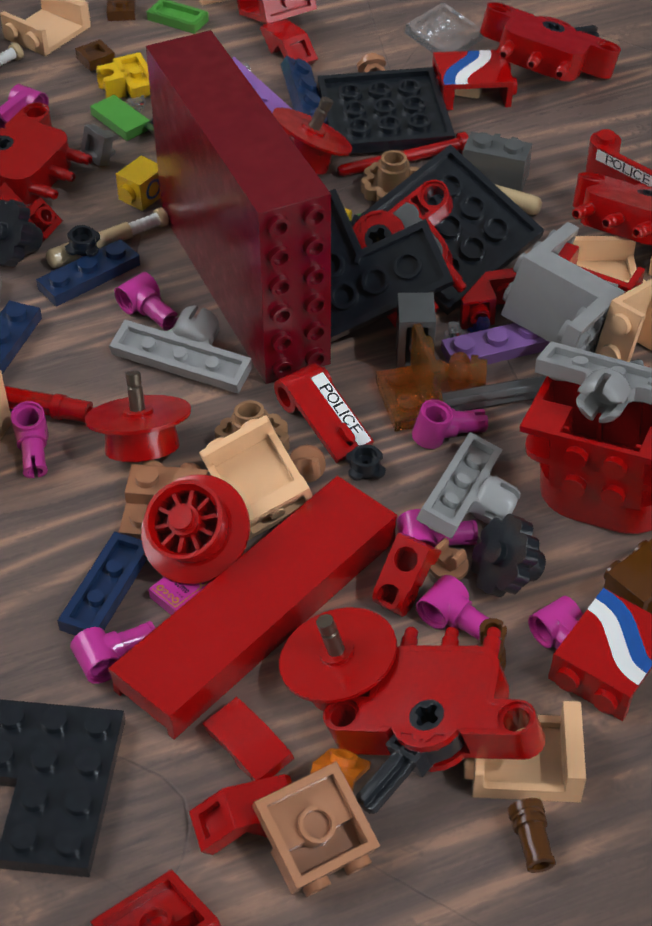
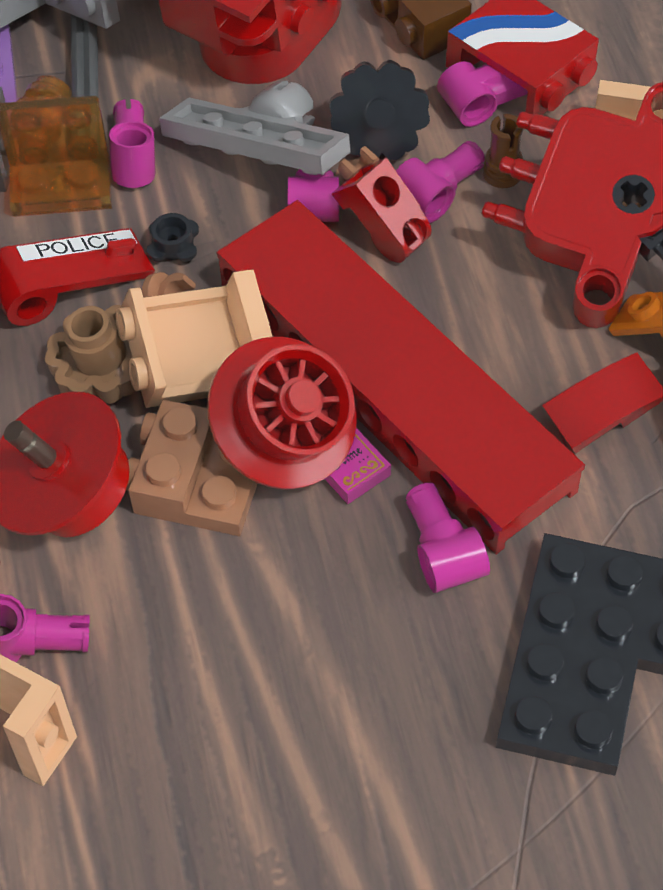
camera: 80 degrees left, 10 degrees up
(104, 585) = (334, 546): dark blue plate -> none
(338, 655) = (517, 280): red piece -> none

